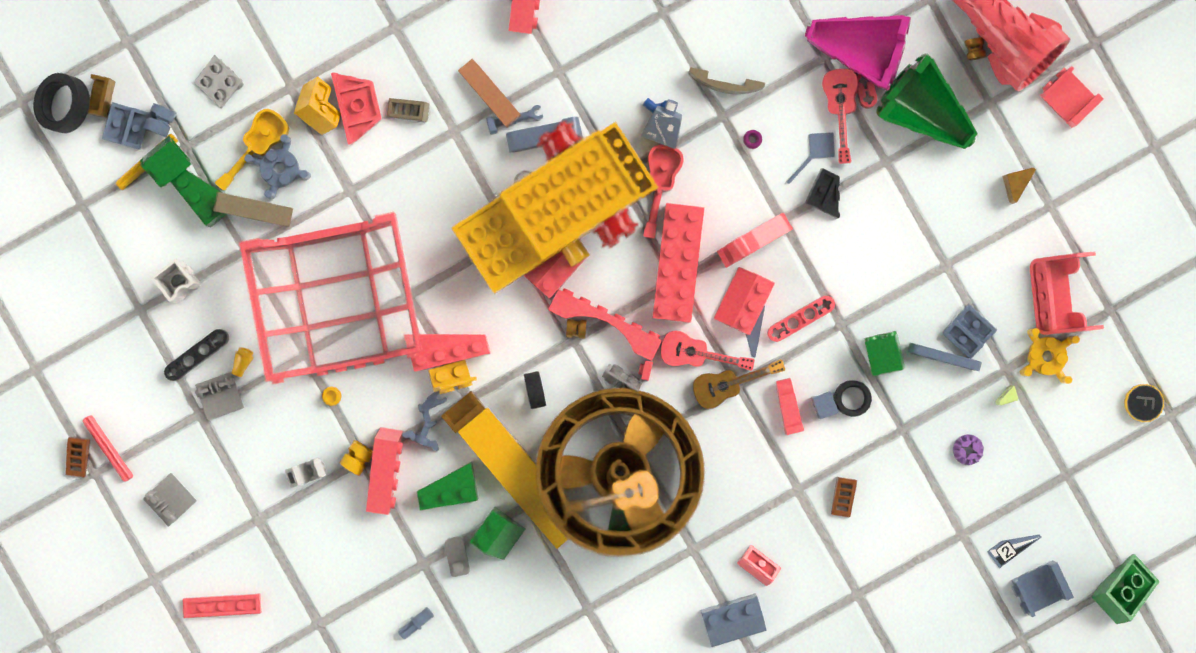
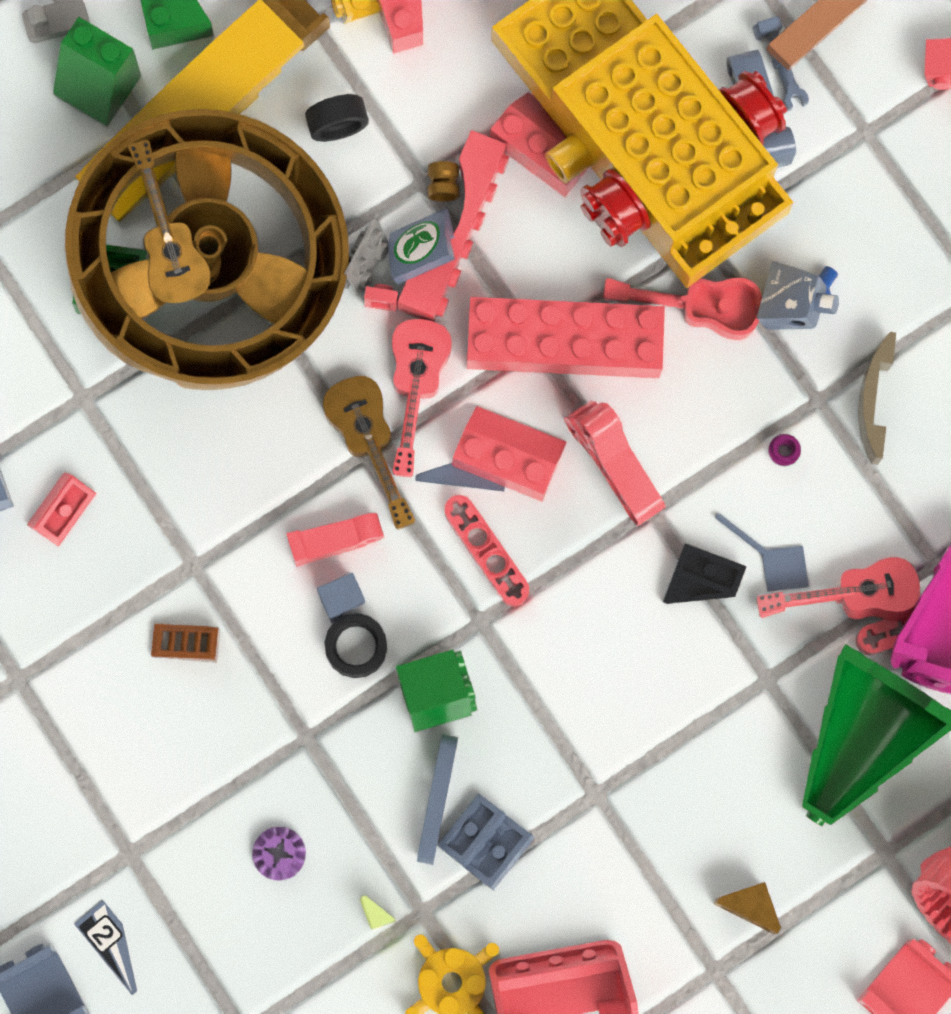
camera: 85 degrees right, 10 degrees down
(618, 344) = (421, 246): none -> slope

